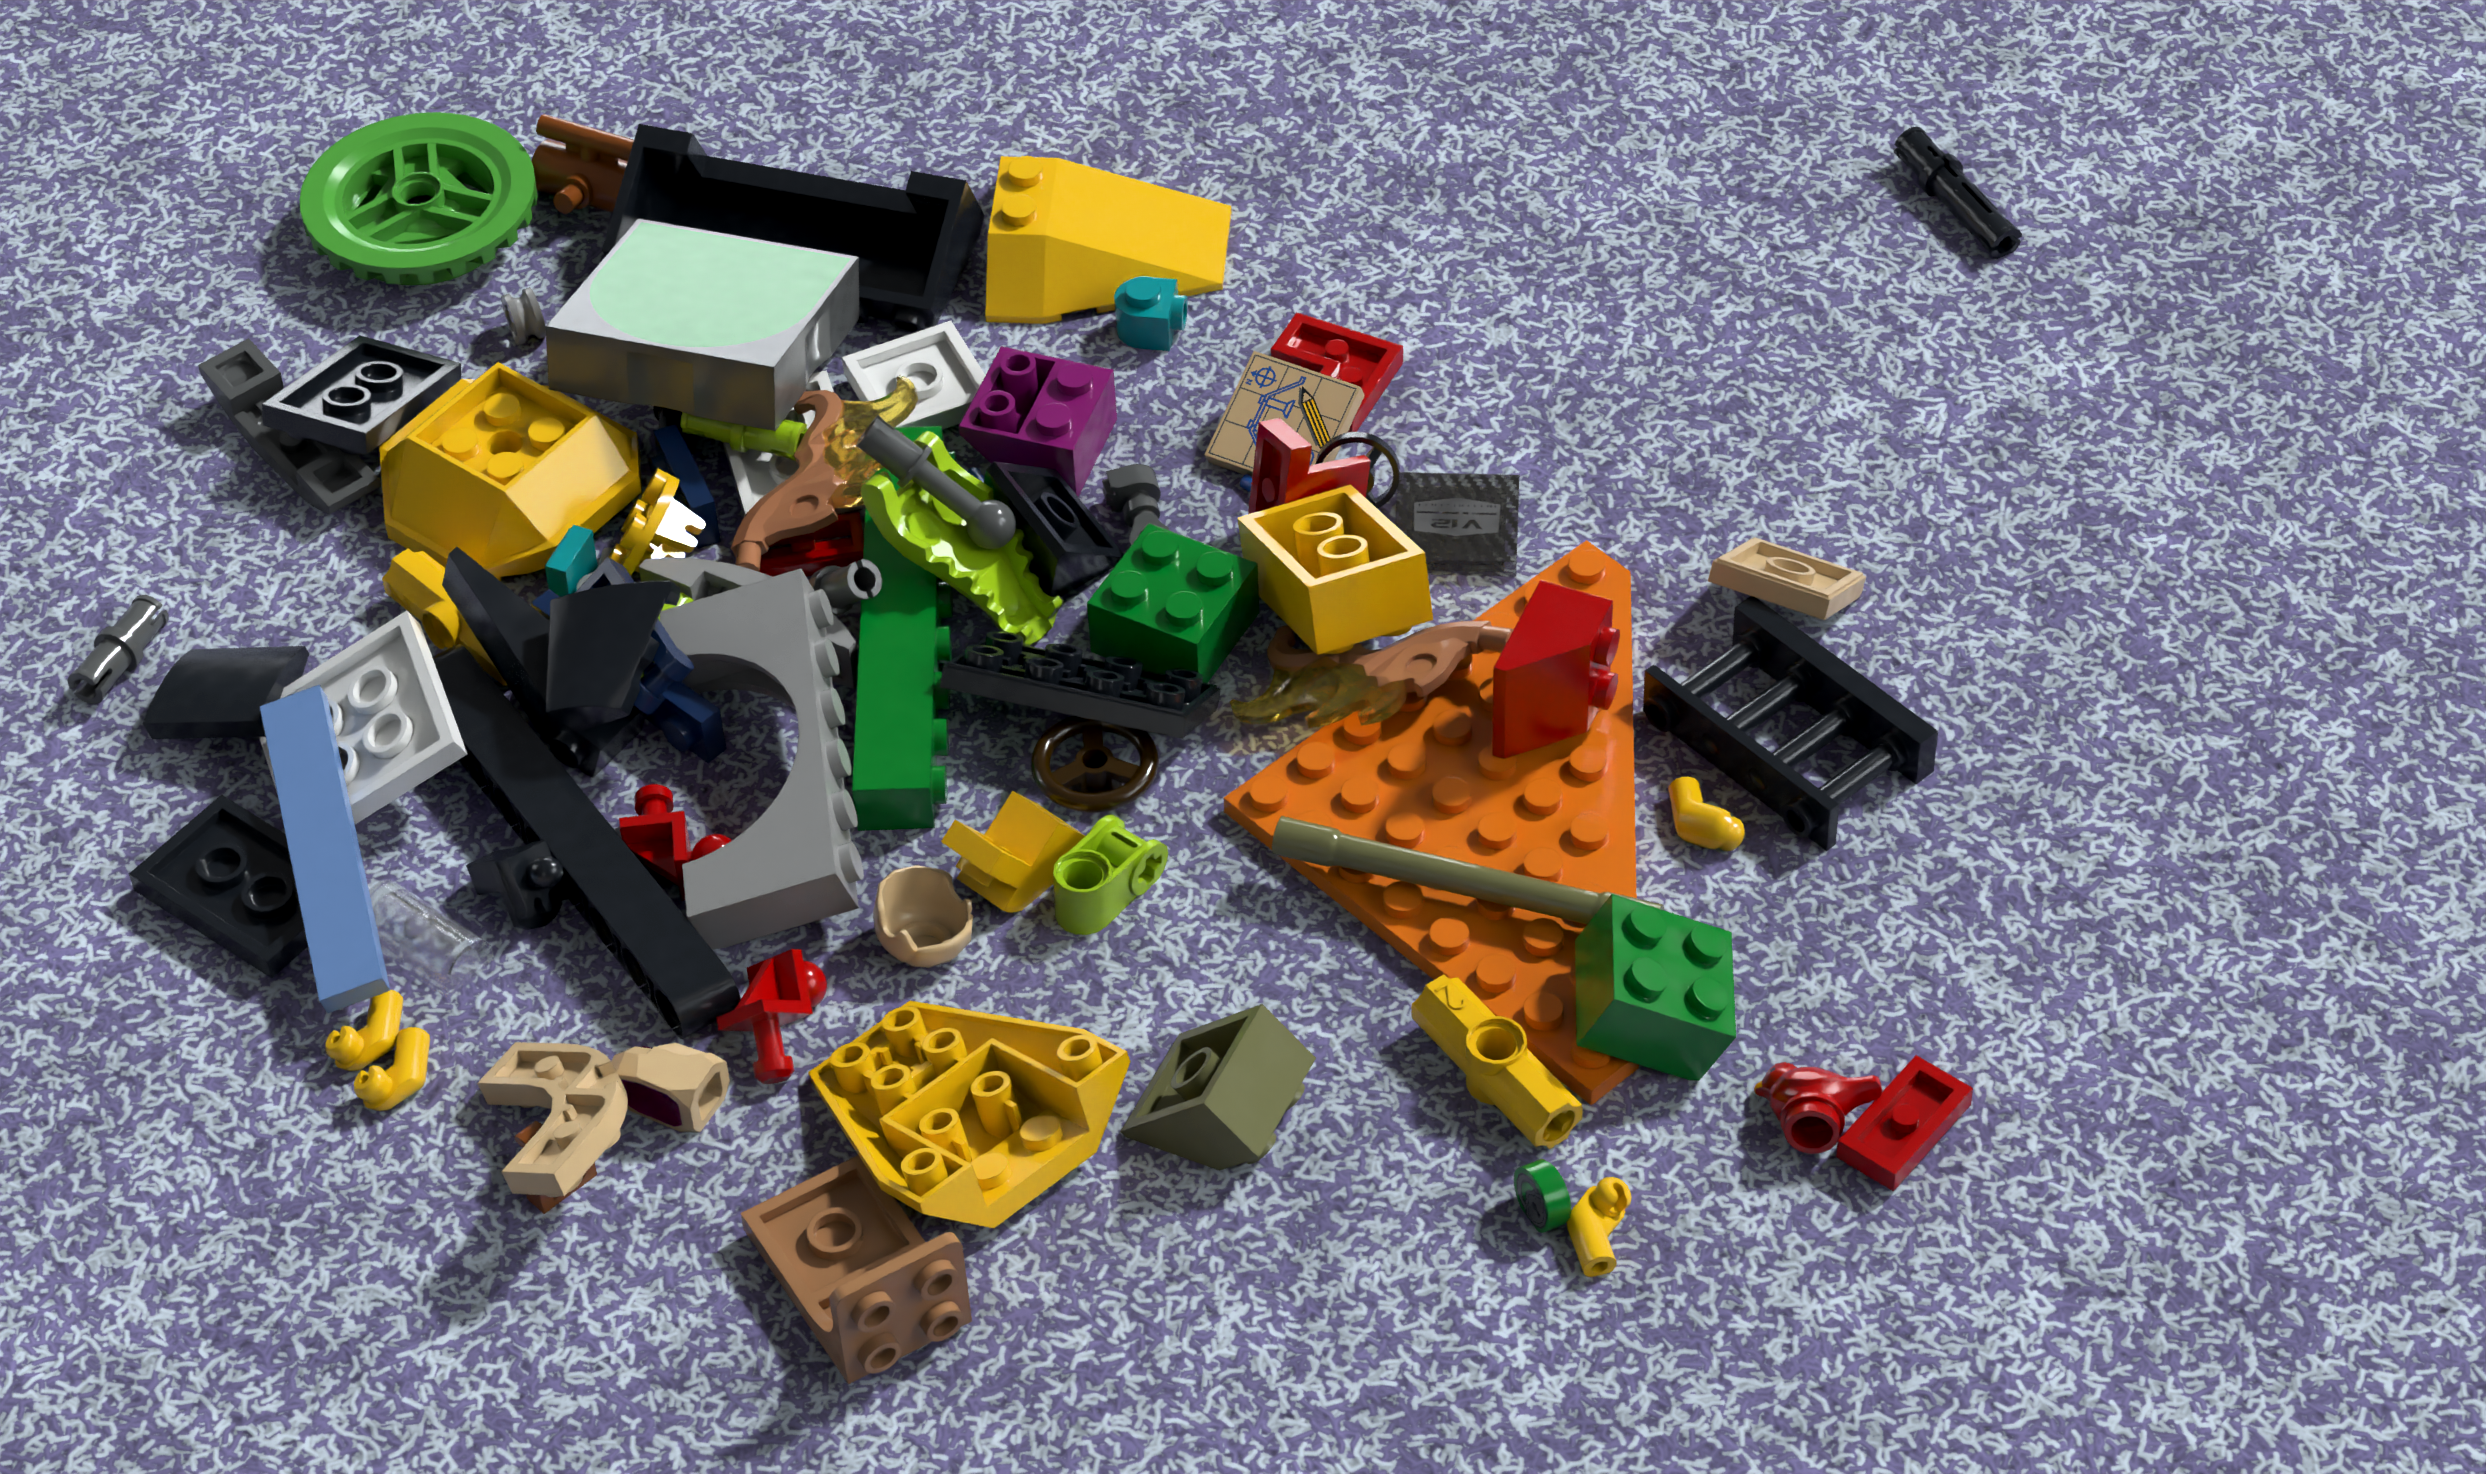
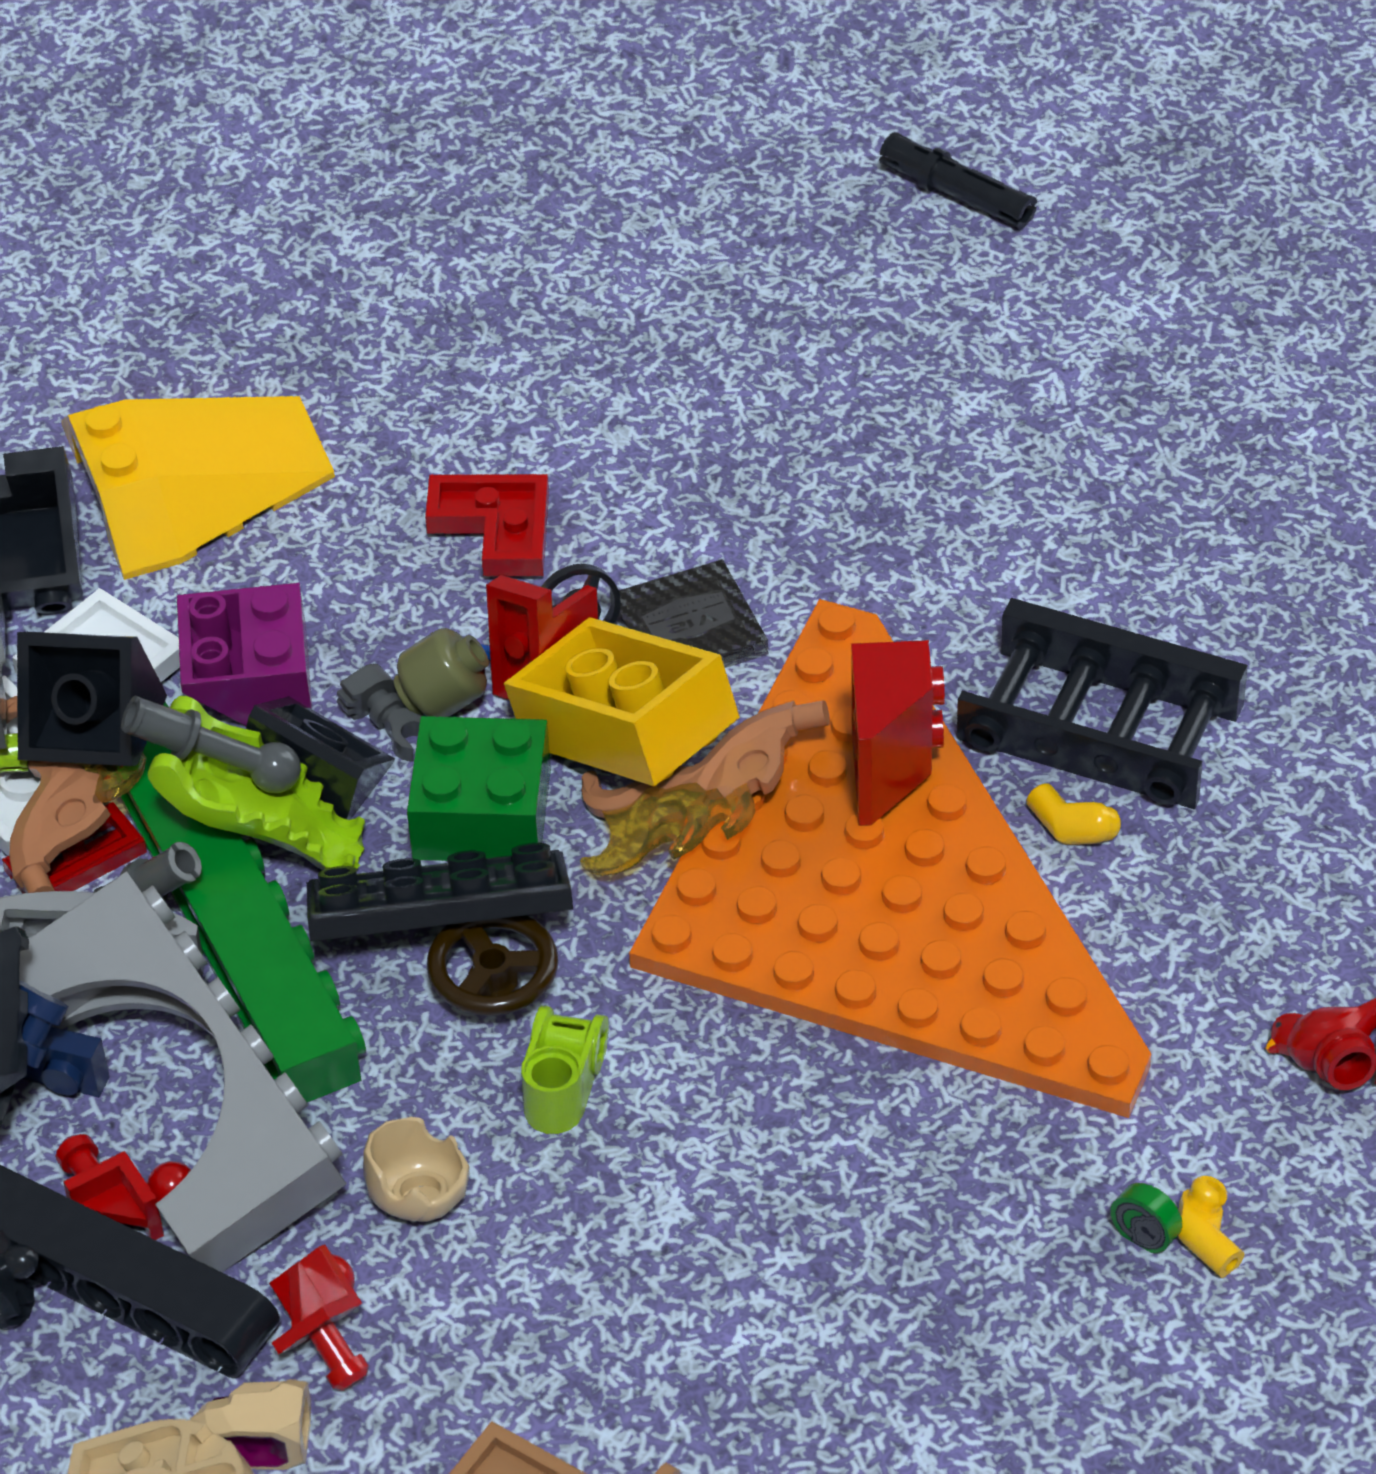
camera: 25 degrees left, 0 degrees up
(843, 394) = (76, 695): none -> black slope
(971, 1106) = (565, 1333): yellow wedge -> none
(1015, 855) = (468, 1076): yellow brick -> none
(1149, 312) = (286, 520): teal plate -> none
(1199, 494) = (441, 673): none -> olive head
(1223, 1090) = (794, 1230): olive slope -> none
(1272, 389) = (460, 562): tan tile -> none
(1331, 847) = (1051, 933): olive piece -> none
(1497, 1061) = (1031, 1108): yellow piece -> none
(1654, 988) = (1142, 987): green brick -> none
(1787, 578) = (1026, 573): tan tile -> none

